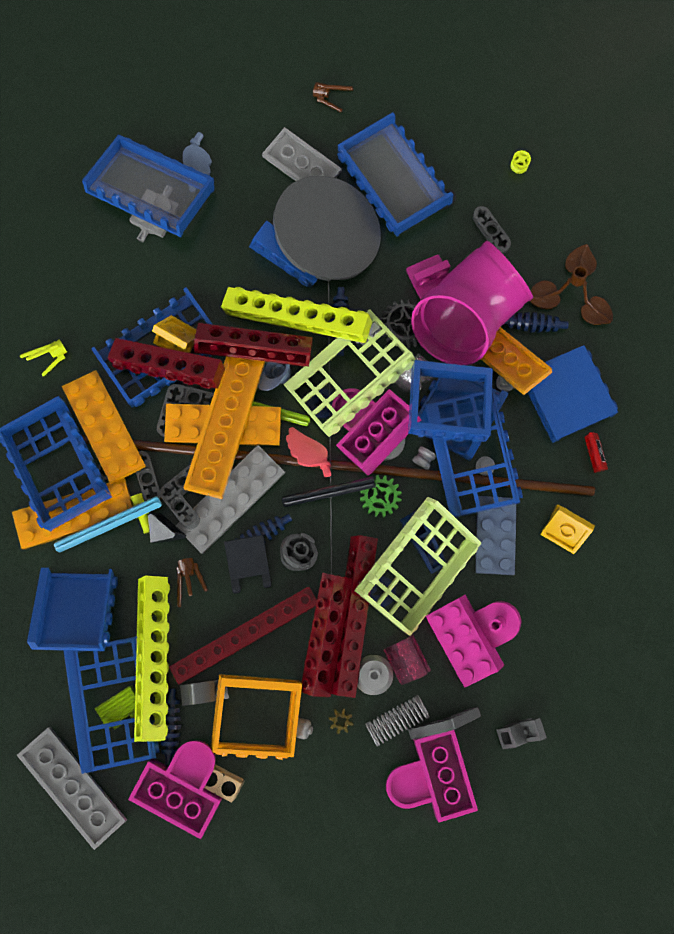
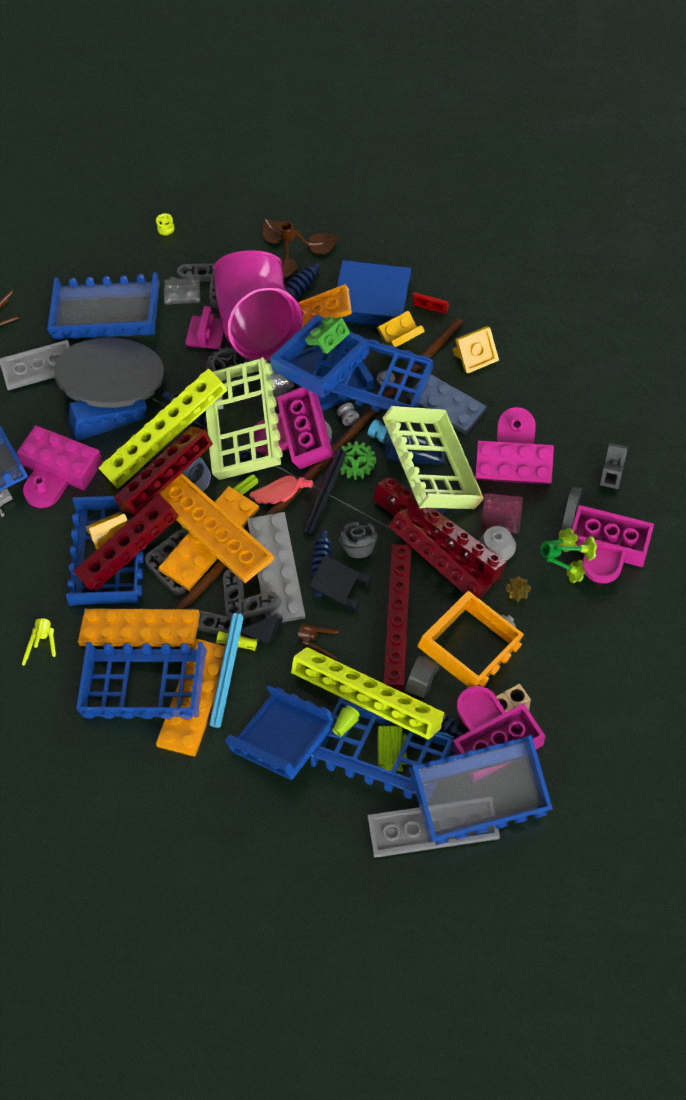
camera: 50 degrees left, 20 degrees down
(111, 659) = (345, 720): none -> lime cone
(114, 815) = (480, 790): none -> clear window
(213, 251) = (55, 464): none -> dark pink brick
(372, 729) = (543, 563): light grey piece -> none
(391, 760) = (567, 542): none -> lime plant
(422, 493) = (379, 431): none -> medium azure wheel
(456, 230) = (182, 290): none -> clear plate
(471, 395) = (328, 334): none -> bright green bracket
(537, 449) = (399, 329): none -> yellow bracket

